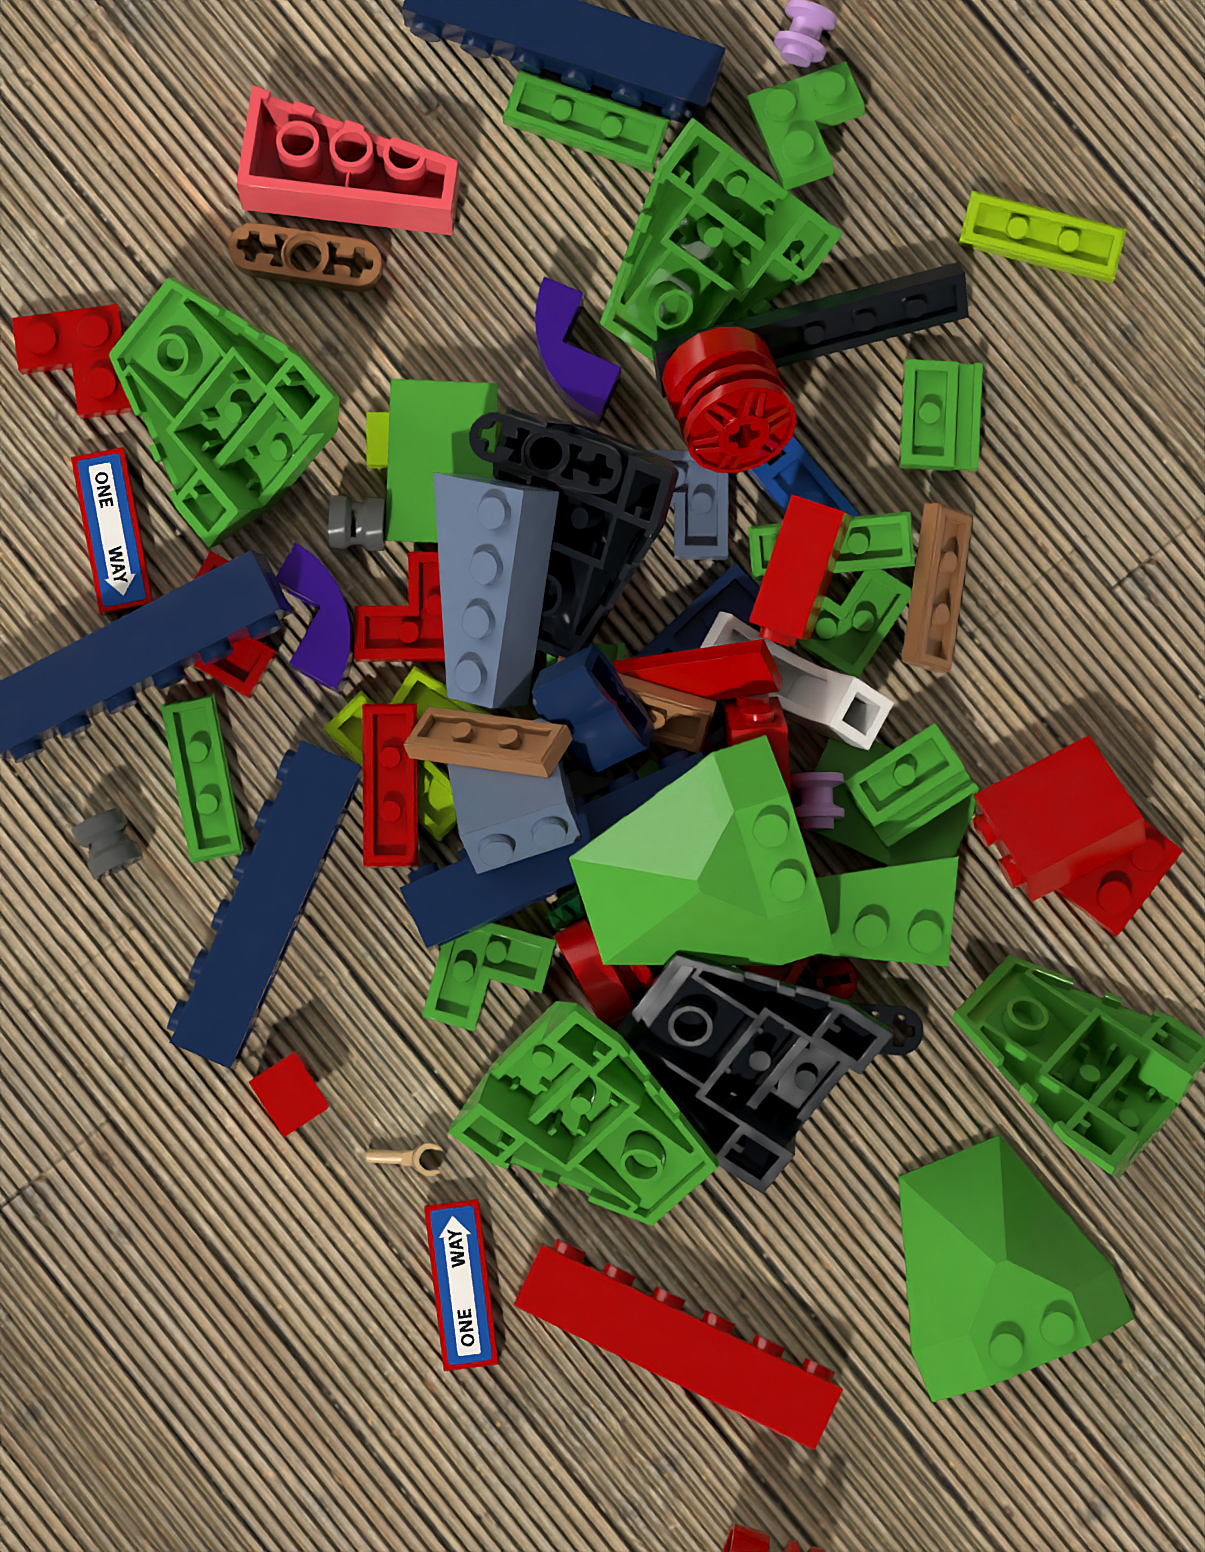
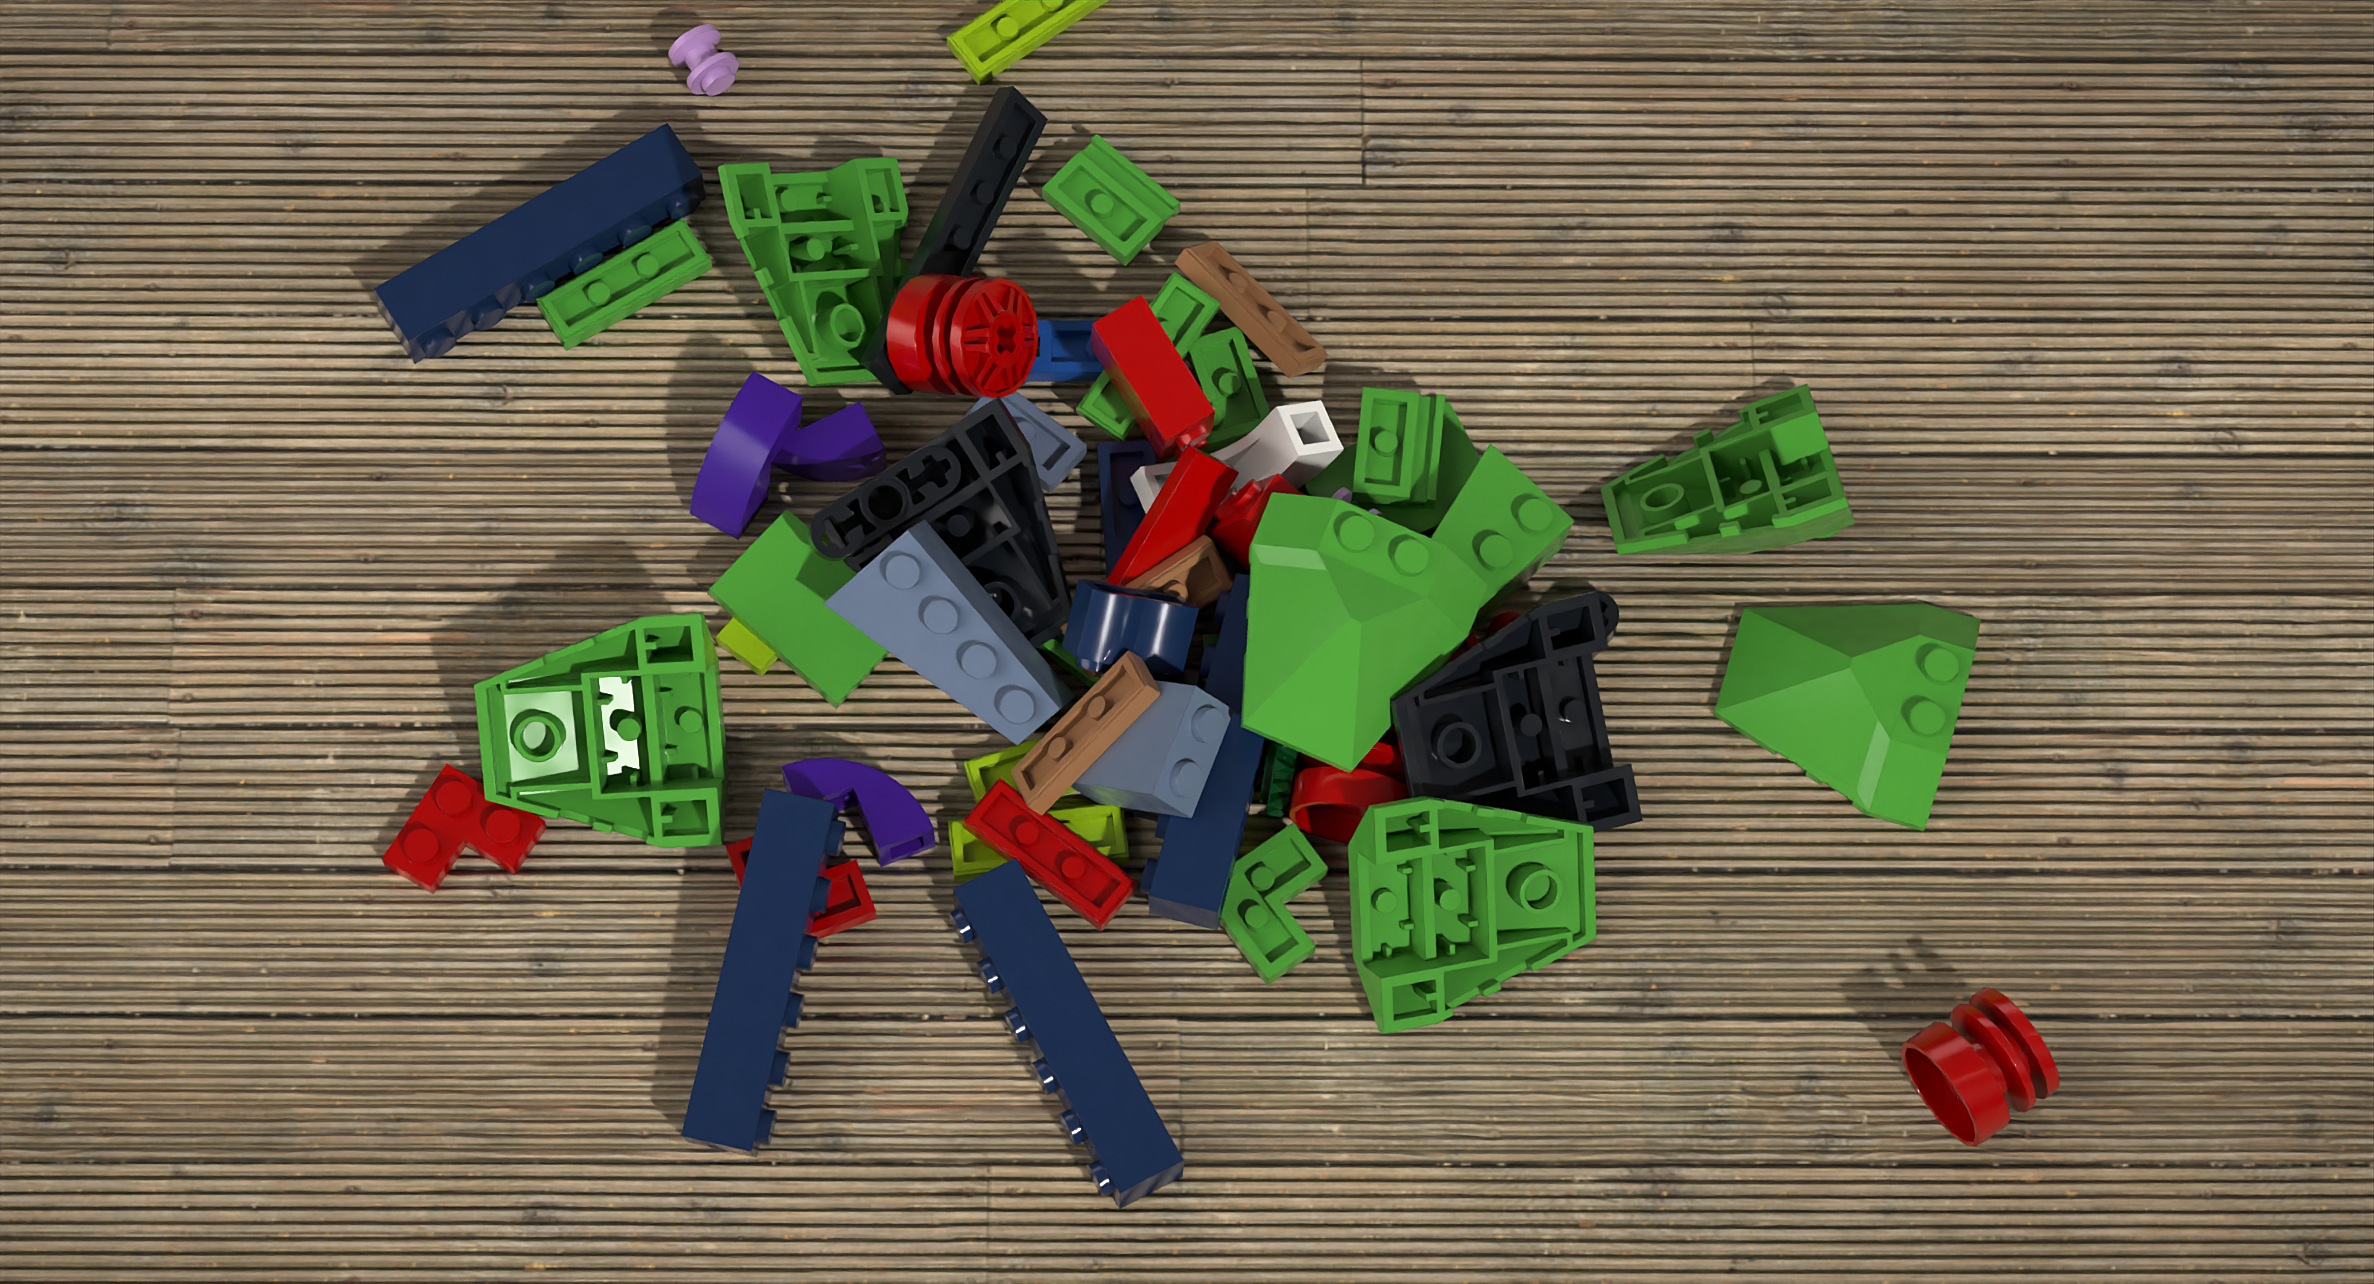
camera: 50 degrees left, 15 degrees down
(109, 848) = (902, 1123): dark grey wheel -> none
(112, 531) = (636, 919): tile -> none
(202, 778) = (911, 1009): bright green tile -> none
(265, 263) = (583, 572): medium nougat beam -> none
(289, 1094) = (1245, 1136): red panel -> none
(340, 172) = (500, 495): coral wedge -> none
(369, 523) = (804, 712): dark grey wheel -> none
(404, 1157) = (1381, 1085): tan hand -> none
(409, 630) = (936, 729): red plate -> none
(461, 1285) = (1521, 1127): tile -> none
(498, 320) = (738, 462): none -> dark purple brick
(679, 1345) = (1712, 986): red brick -> none
(793, 114) = (769, 126): bright green plate -> none
(1058, 819) = (1521, 355): red brick -> none
(1122, 885) = (1607, 369): red plate -> none

